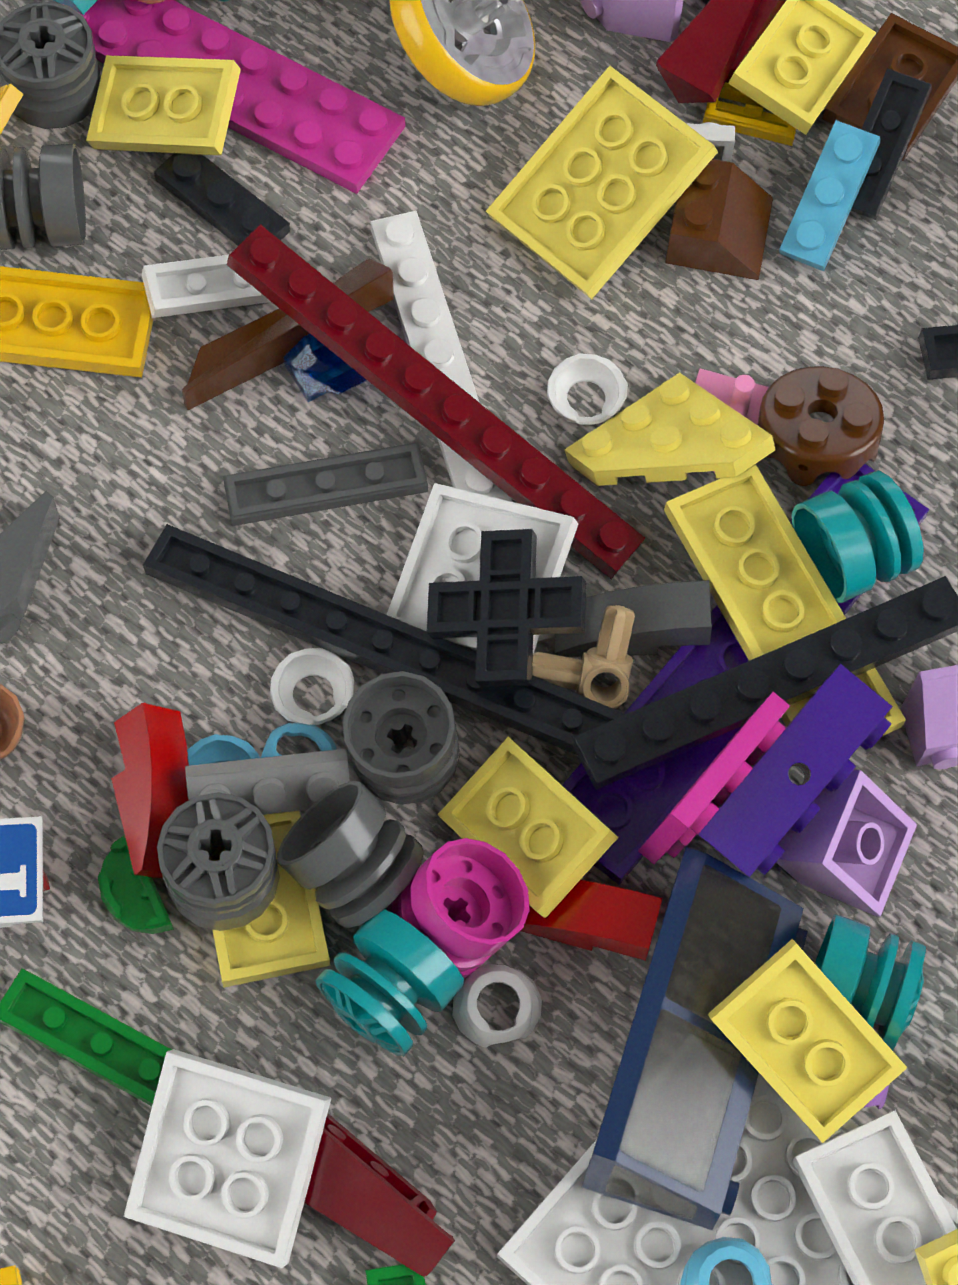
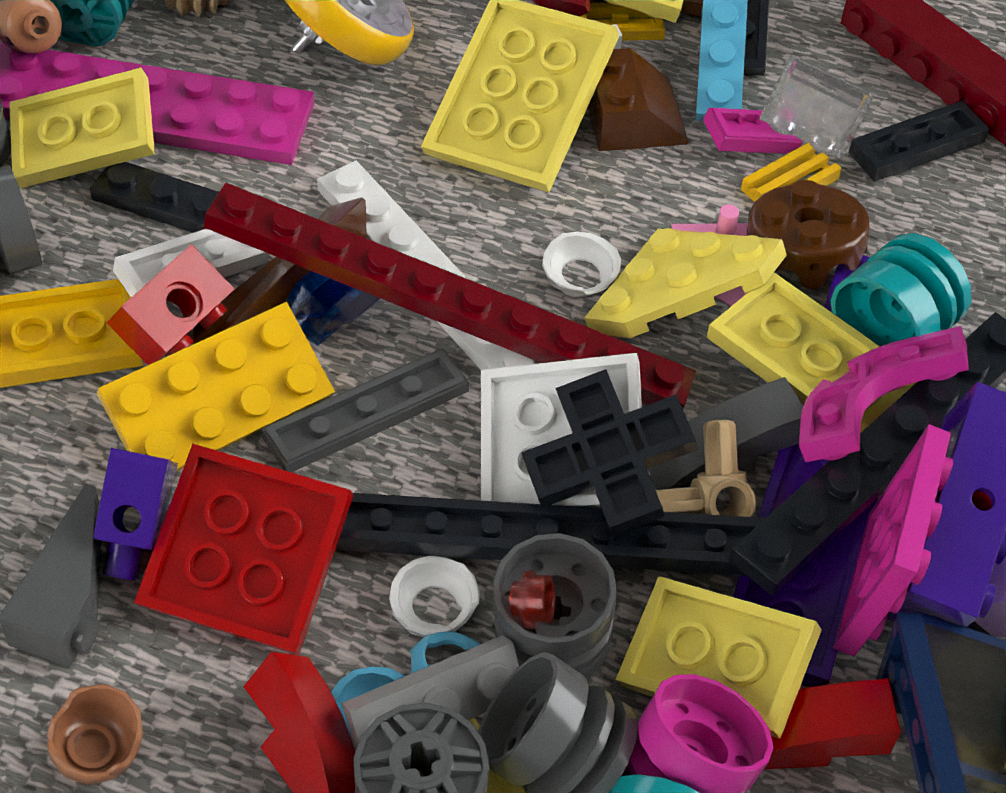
camera: 20 degrees left, 15 degrees down
(79, 524) = (139, 483): none -> dark purple torso
(148, 337) = (191, 285): none -> brick
(161, 594) = (244, 549): none -> red plate
(193, 430) = (218, 388): none -> yellow plate
(376, 729) = (533, 598): none -> clear red plate
(740, 625) = (835, 409): none -> dark pink plate
(826, 287) = (744, 132): none -> dark pink plate
(845, 334) = (789, 170): none -> yellow tile
(892, 286) = (816, 107): none -> clear slope

